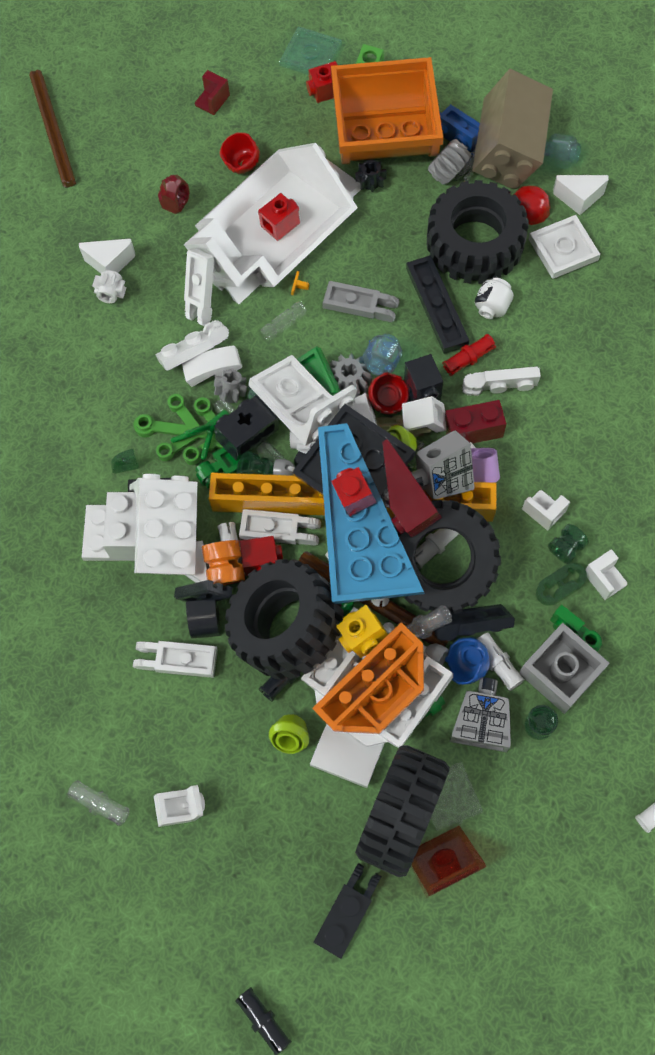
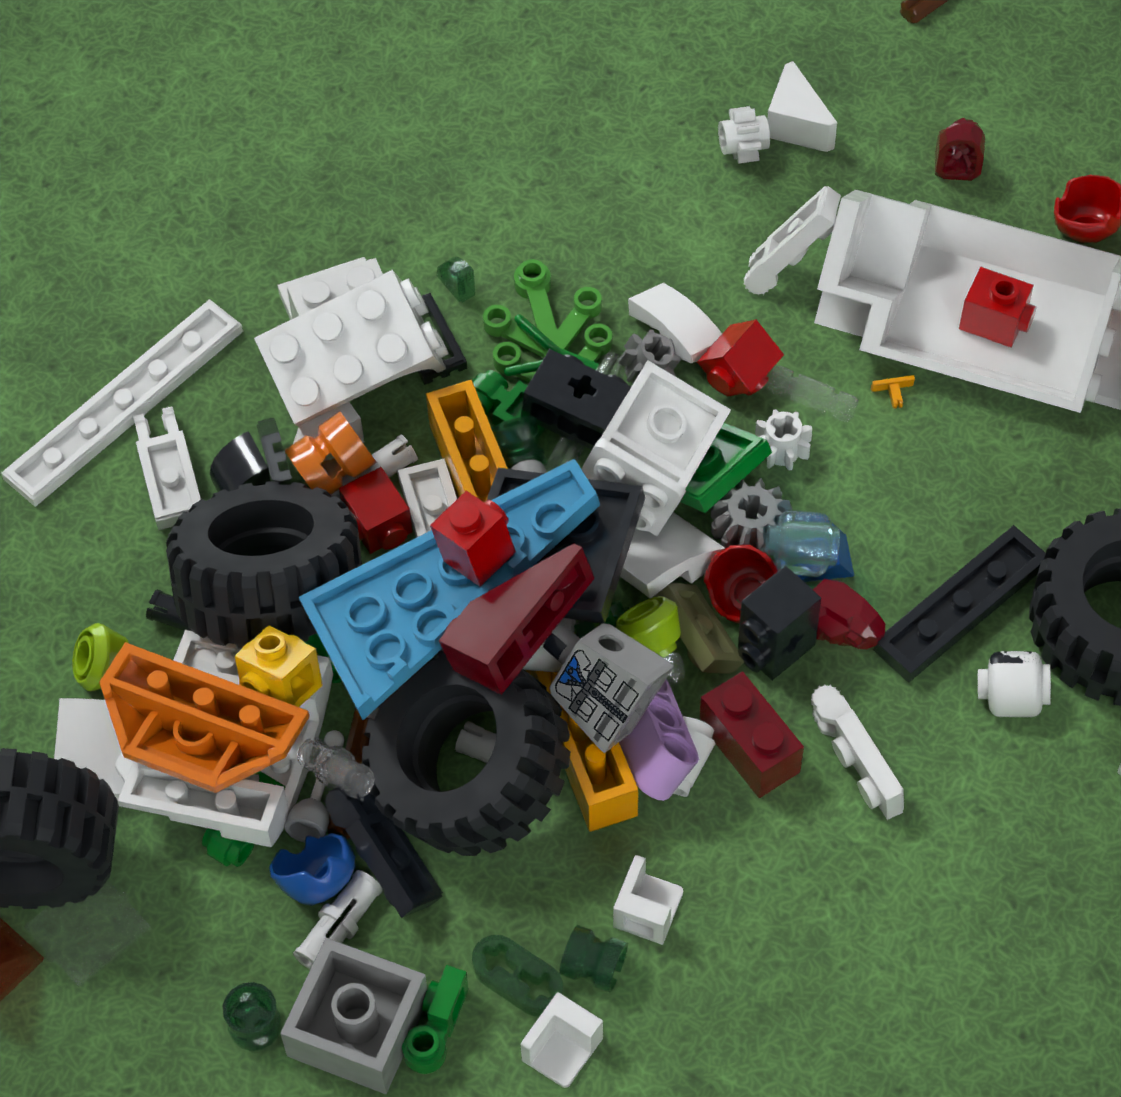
camera: 65 degrees right, 10 degrees down
(117, 671) = (113, 407): none -> white tile
(192, 345) = (698, 283): white hinge -> none
(252, 342) = (740, 359): none -> red brick
(307, 340) = (786, 438): none -> white gear
(359, 301) = (904, 484): light grey hinge -> none
(424, 413) = (718, 643): white panel -> none
(435, 347) = (847, 617): none -> dark red rock
(469, 354) = (886, 686): red pin -> none
(483, 719) = (226, 926): torso -> none

